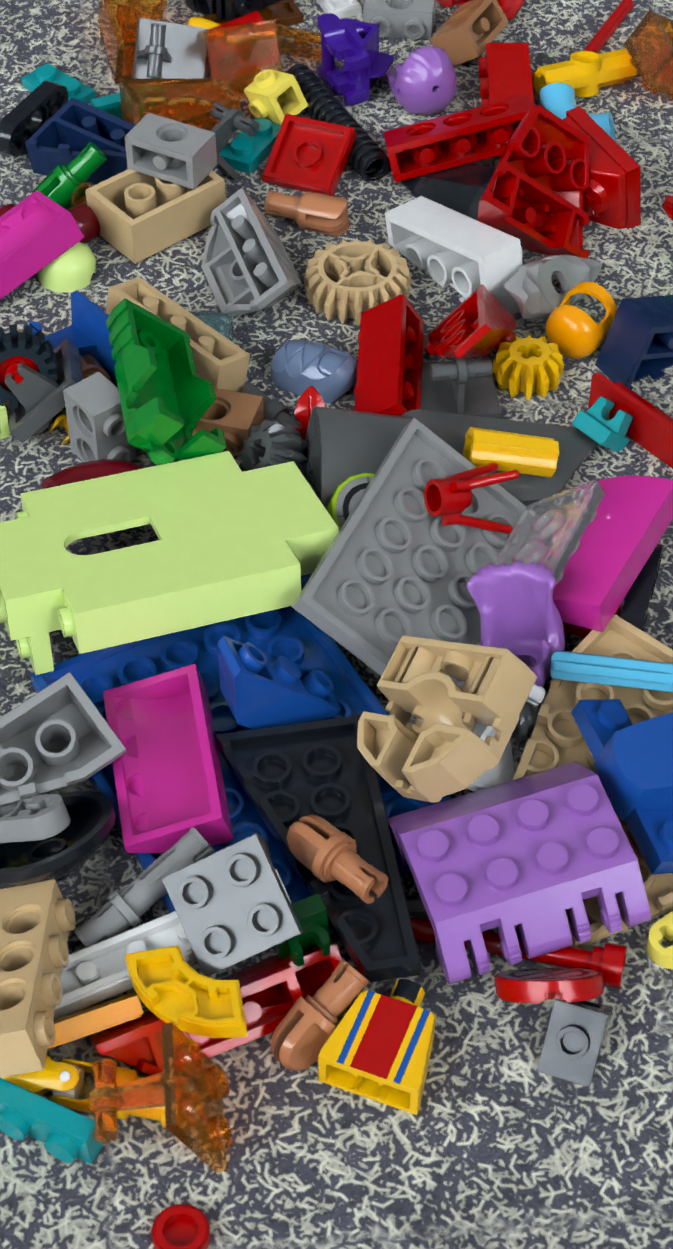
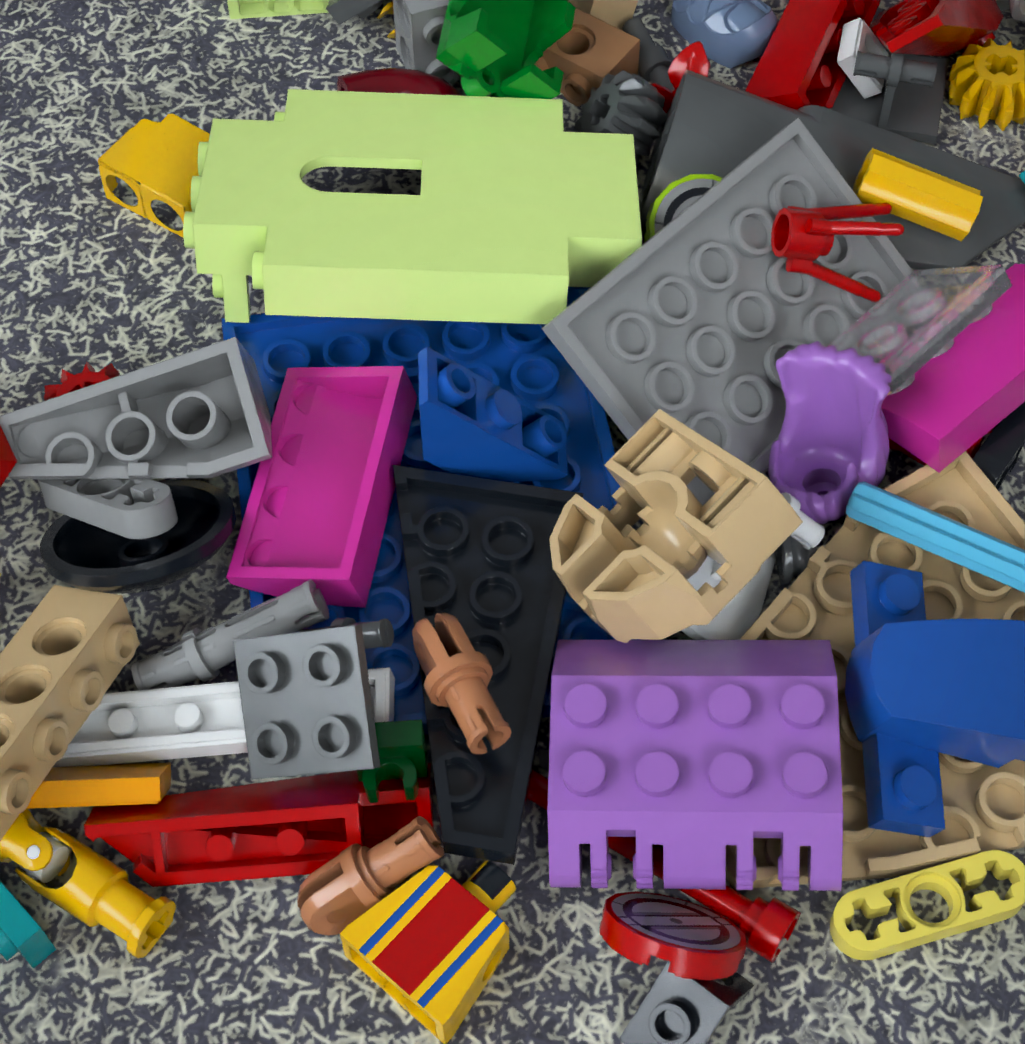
camera: 20 degrees right, 10 degrees up
(184, 996) = (210, 802): yellow tile -> none
(188, 1089) = (160, 936): clear orange plate -> none
(420, 359) = (859, 37): none -> white tile

